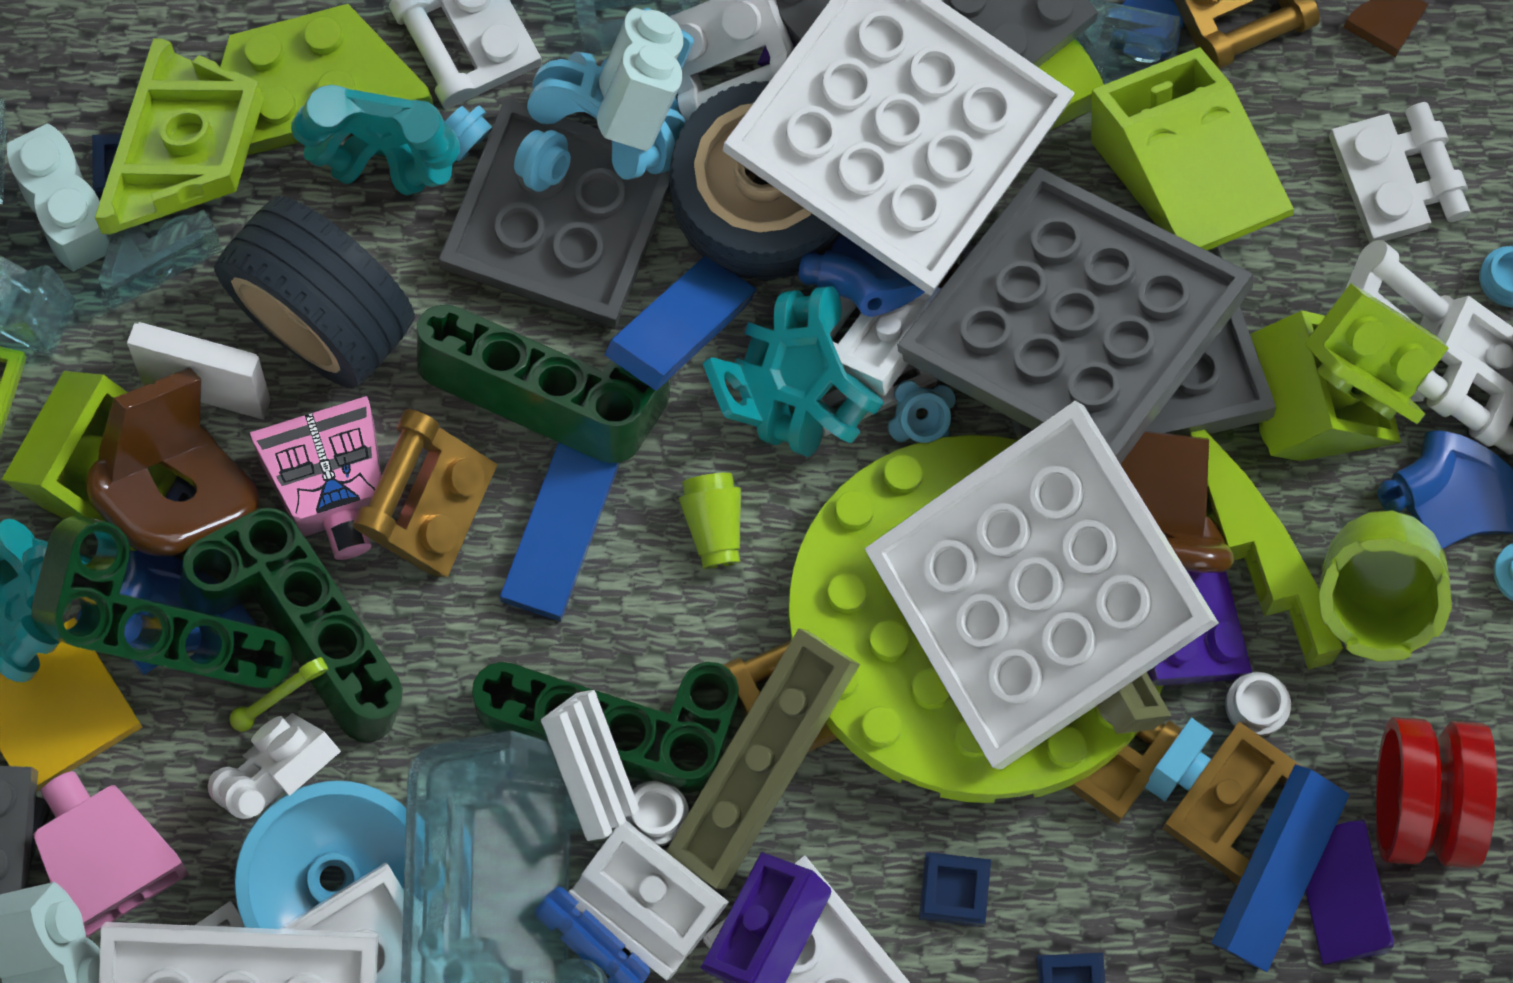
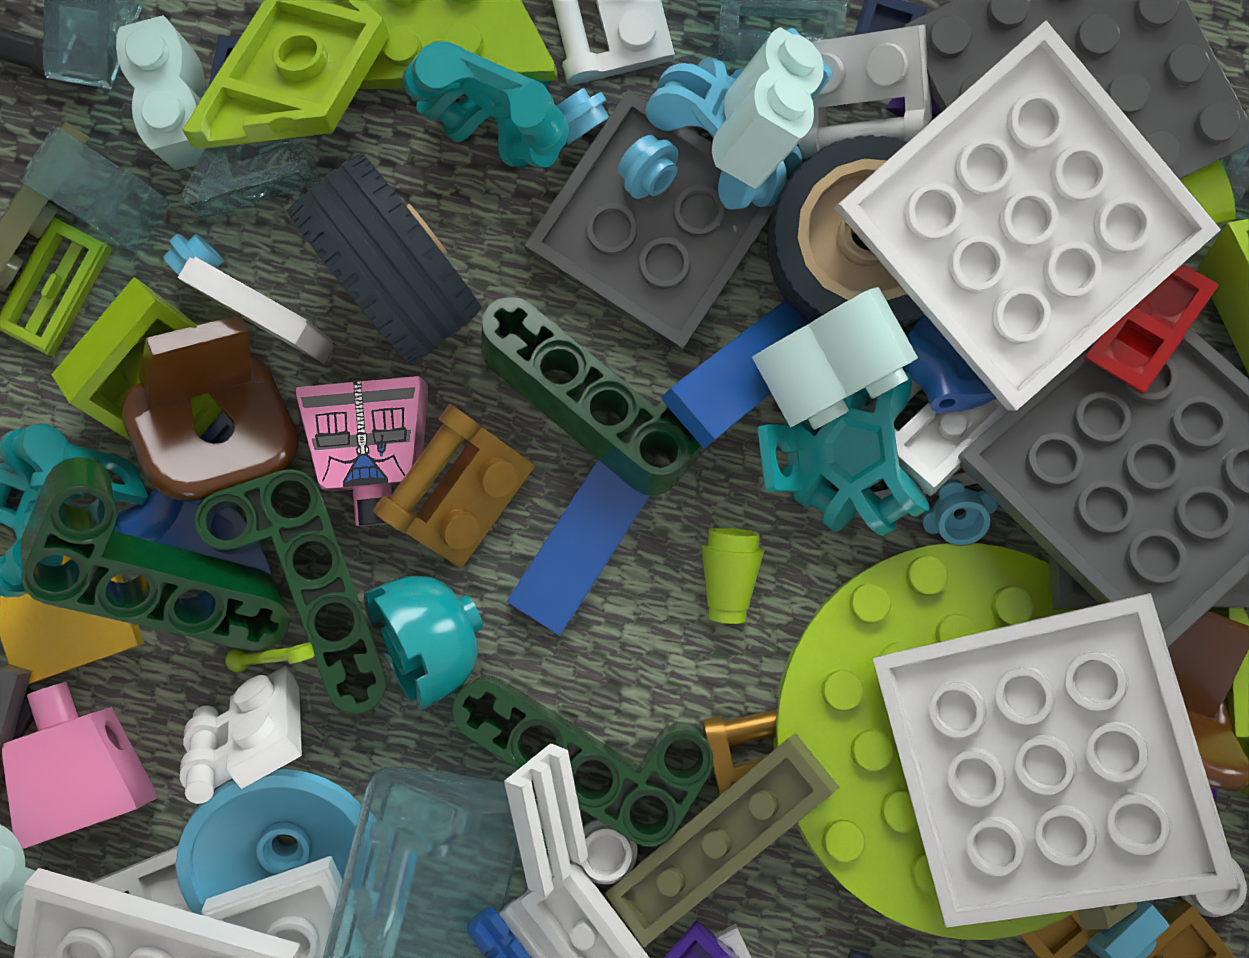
camera: 20 degrees right, 15 degrees up
(111, 346) = (195, 247): none -> medium azure plate
(430, 635) = (425, 635): none -> teal cylinder
(757, 283) = (834, 358): none -> light aqua brick
(1044, 193) = (1152, 330): none -> red slope

